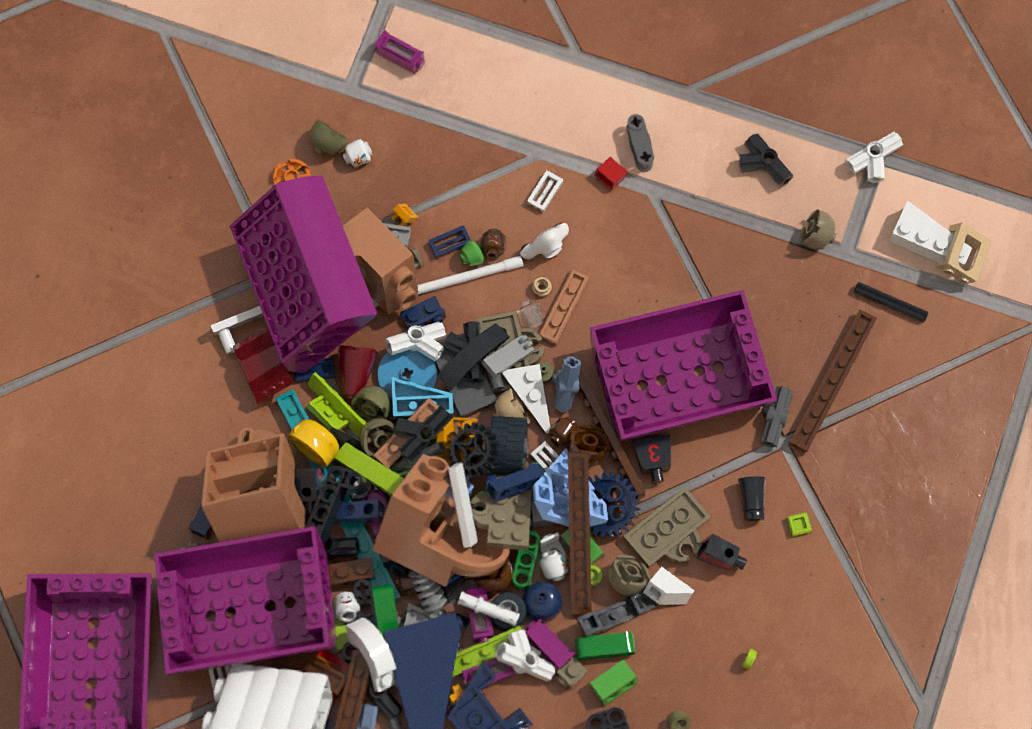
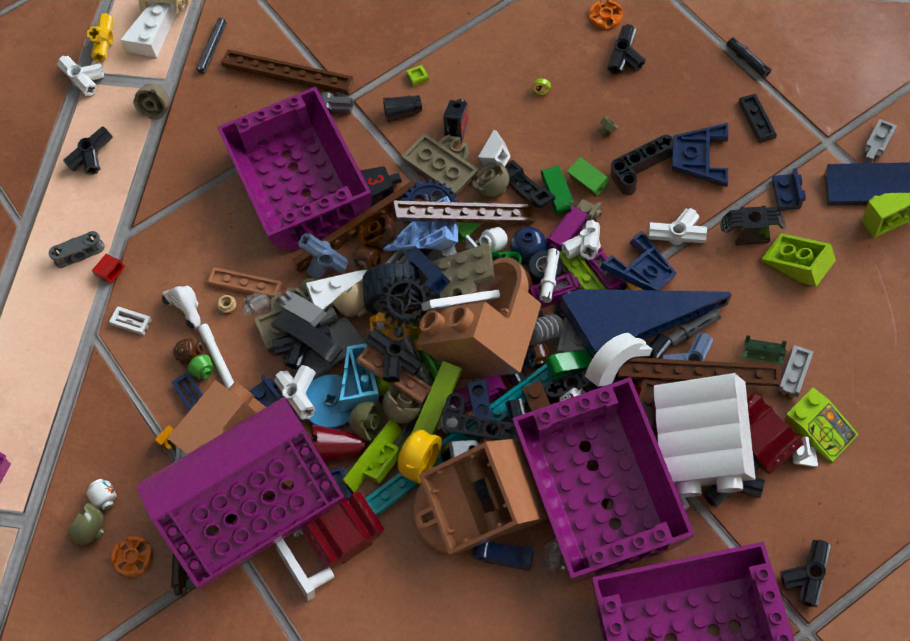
camera: 90 degrees left, 10 degrees down
(924, 182) = (101, 37): none -> yellow piece

